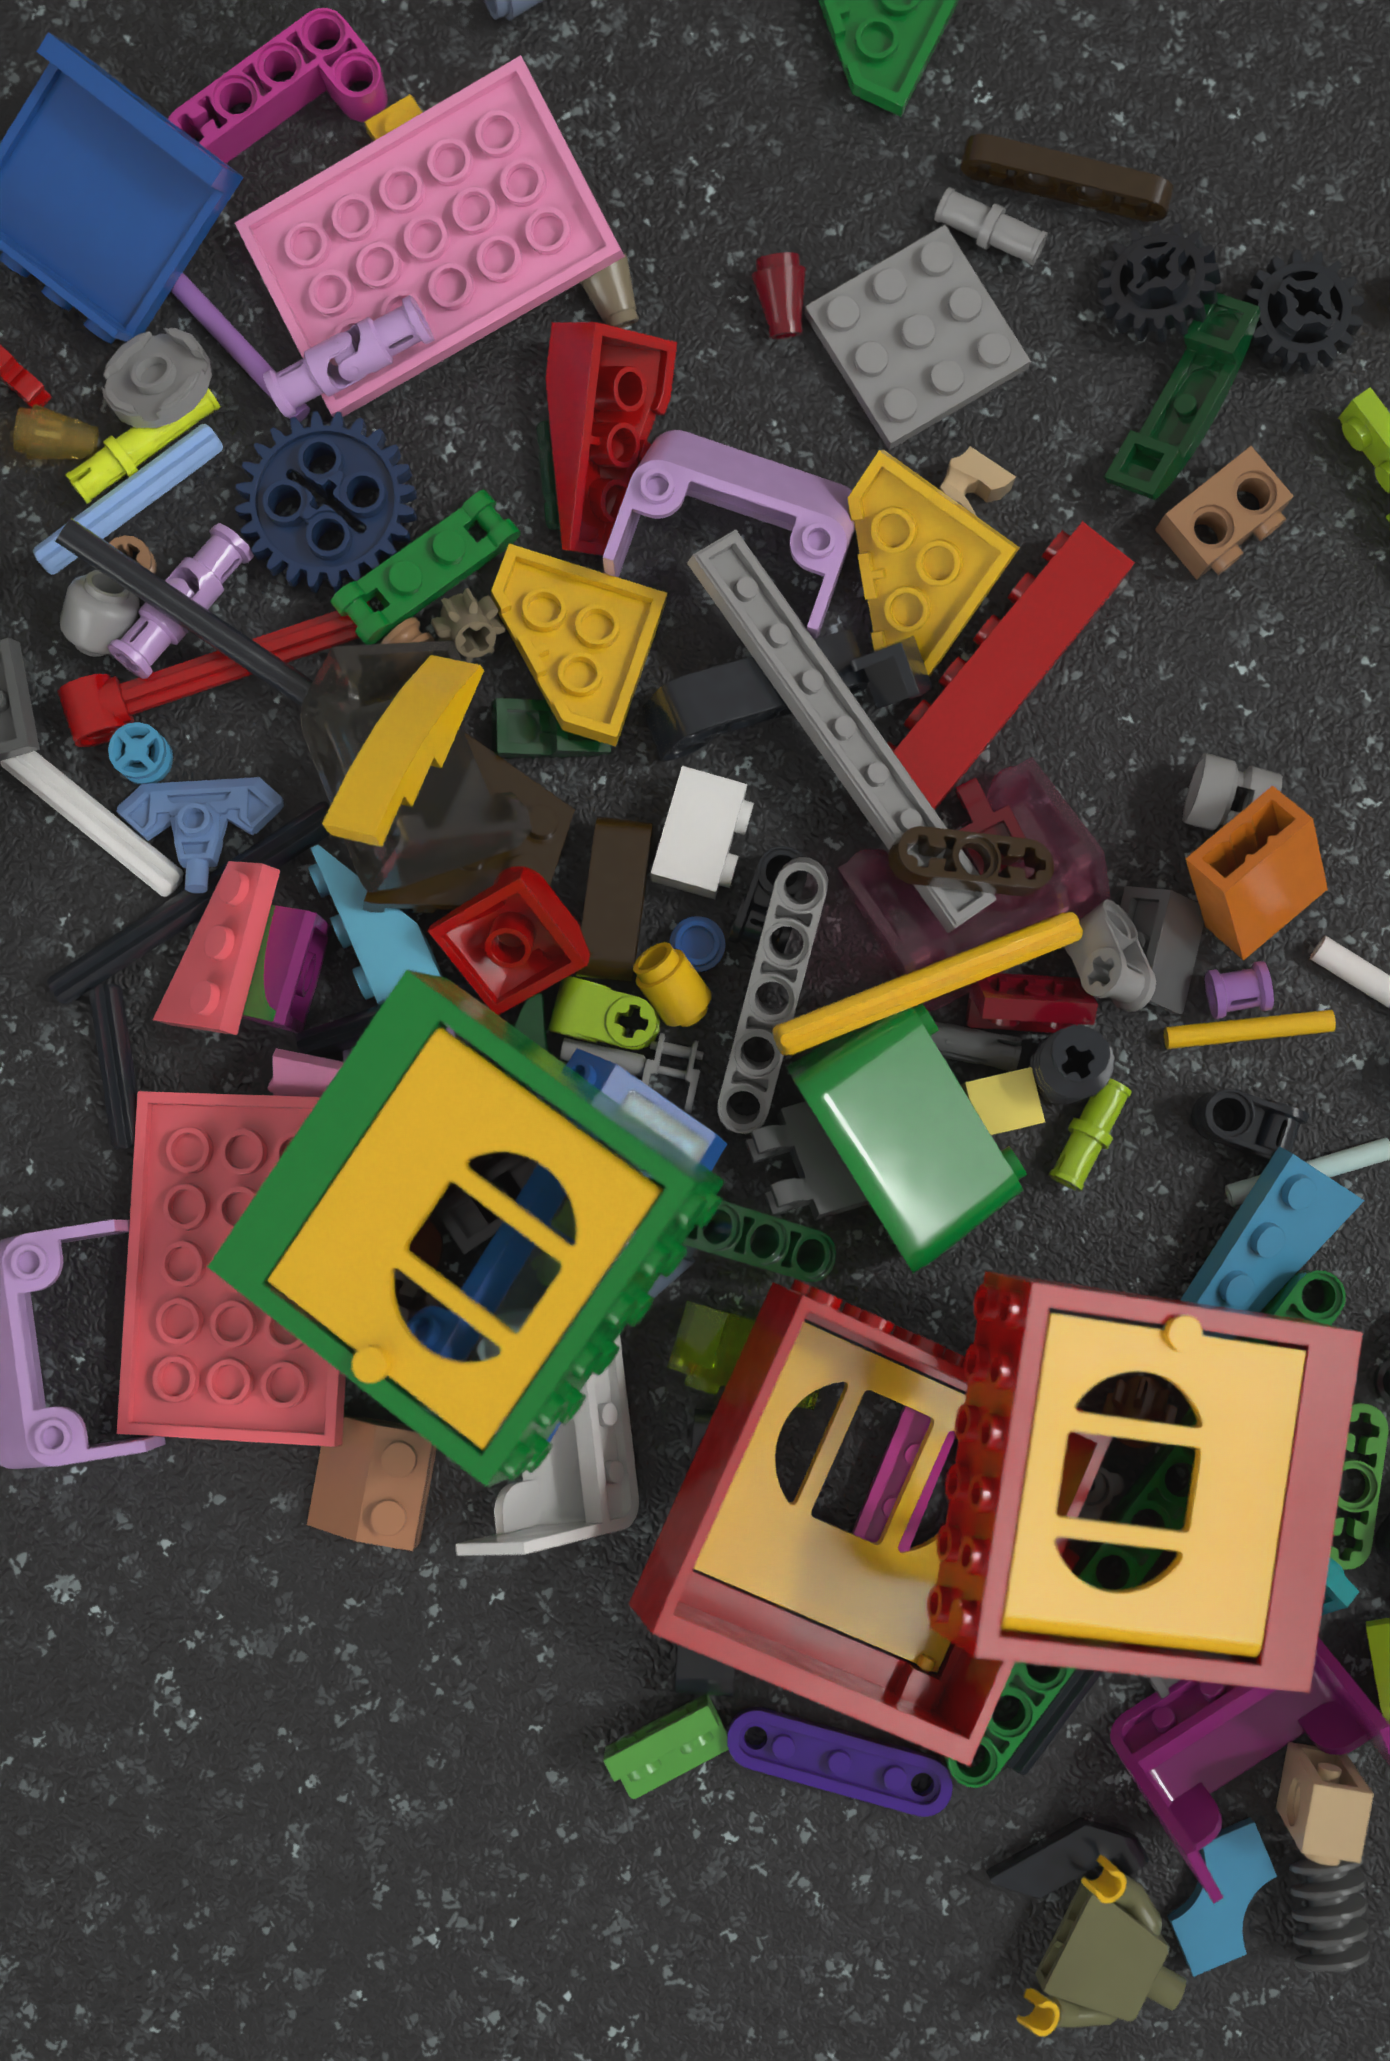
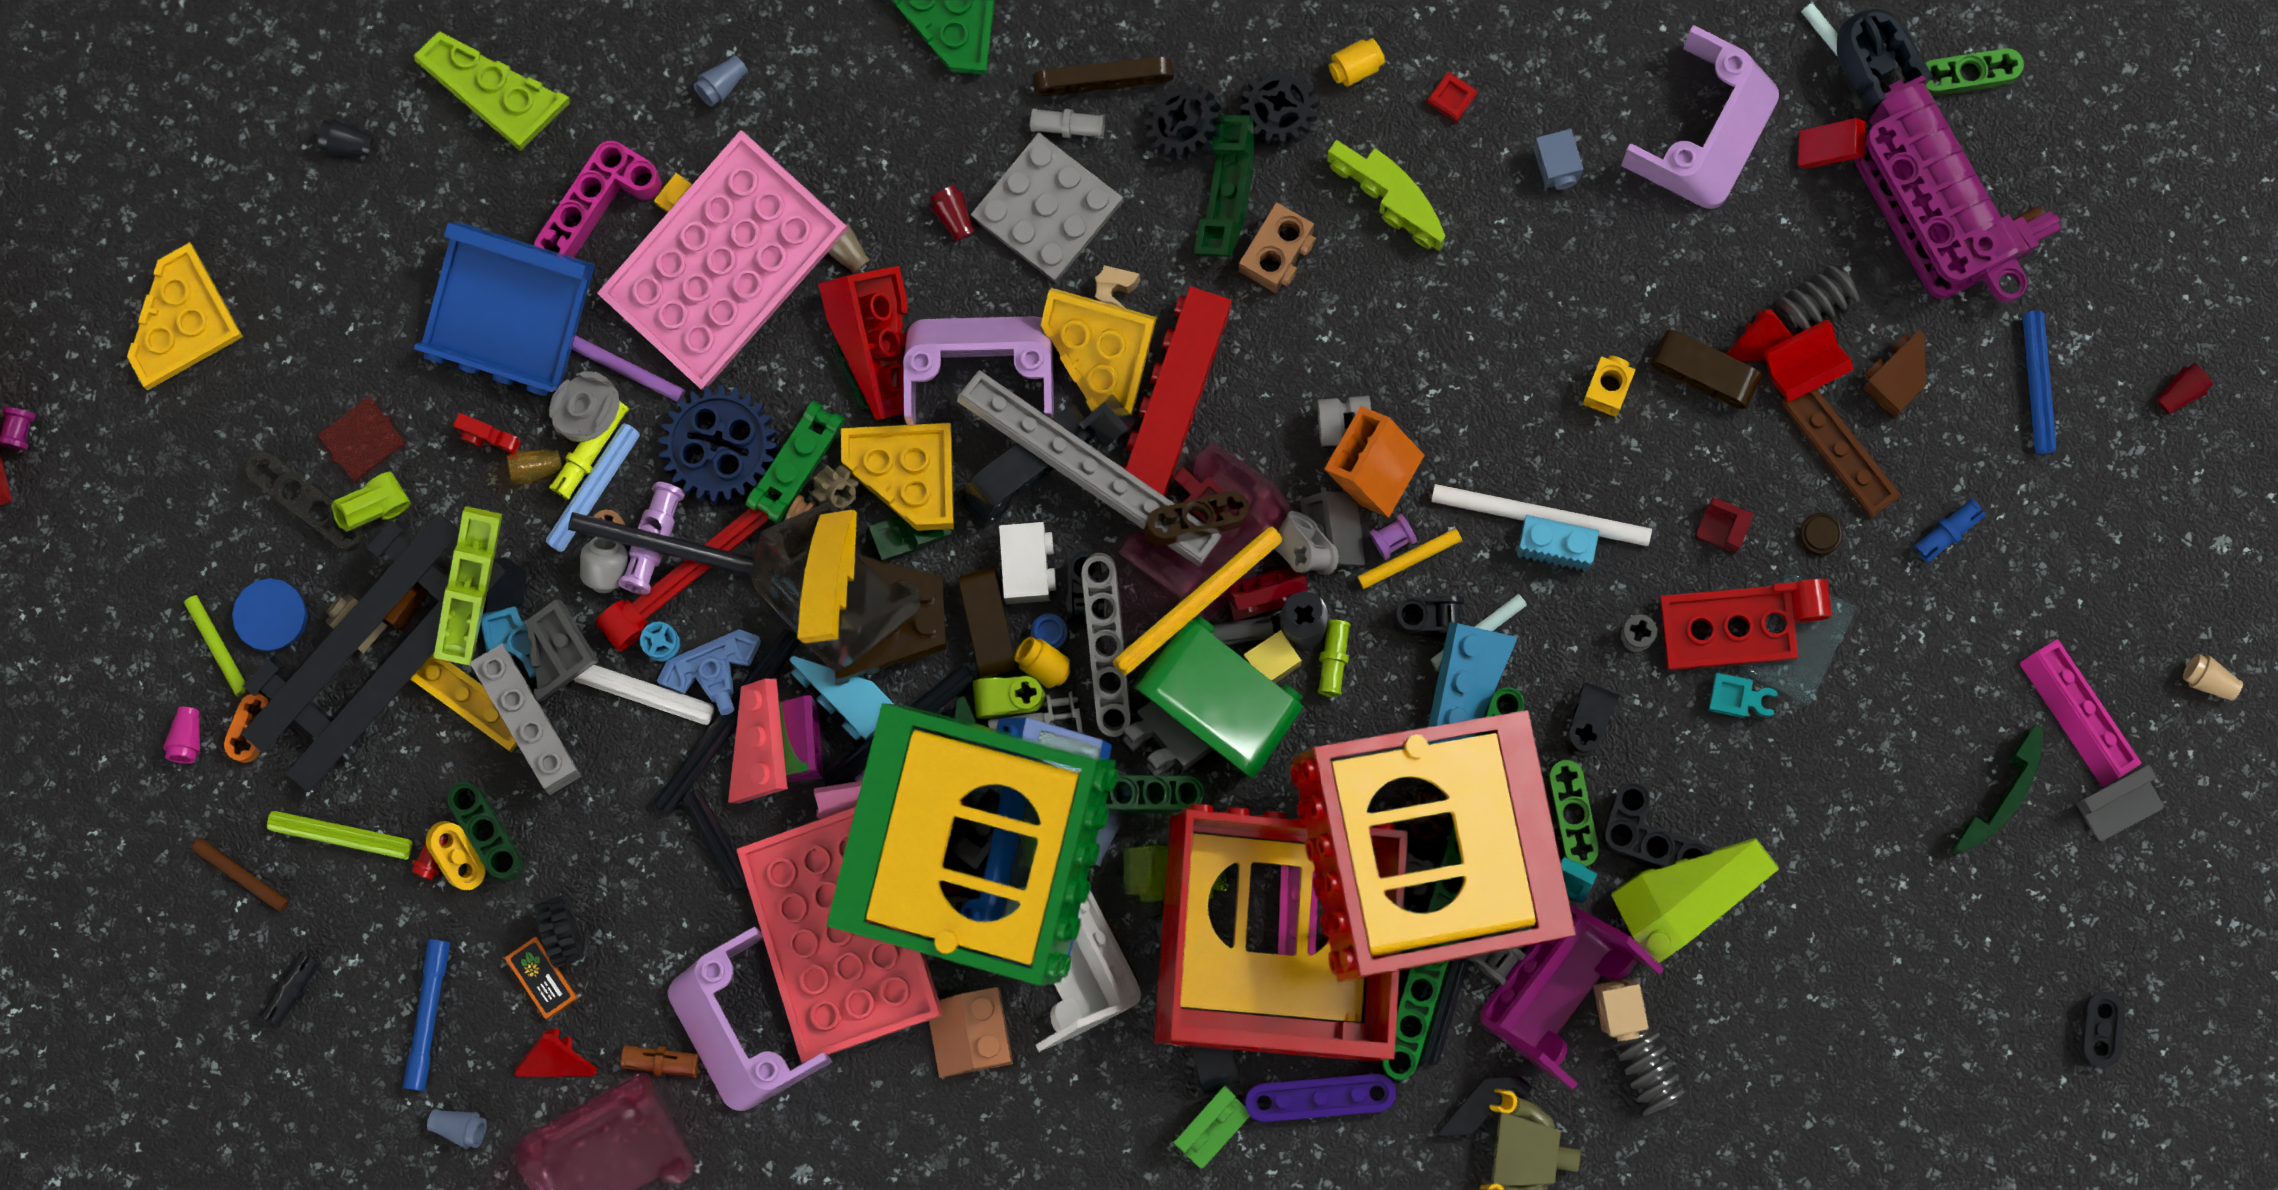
camera: 10 degrees left, 5 degrees down
(357, 352) = (706, 346): lavender piece -> none
(512, 939) = (934, 668): red slope -> none
(1213, 1932) = (1586, 1112): dark azure tile -> none

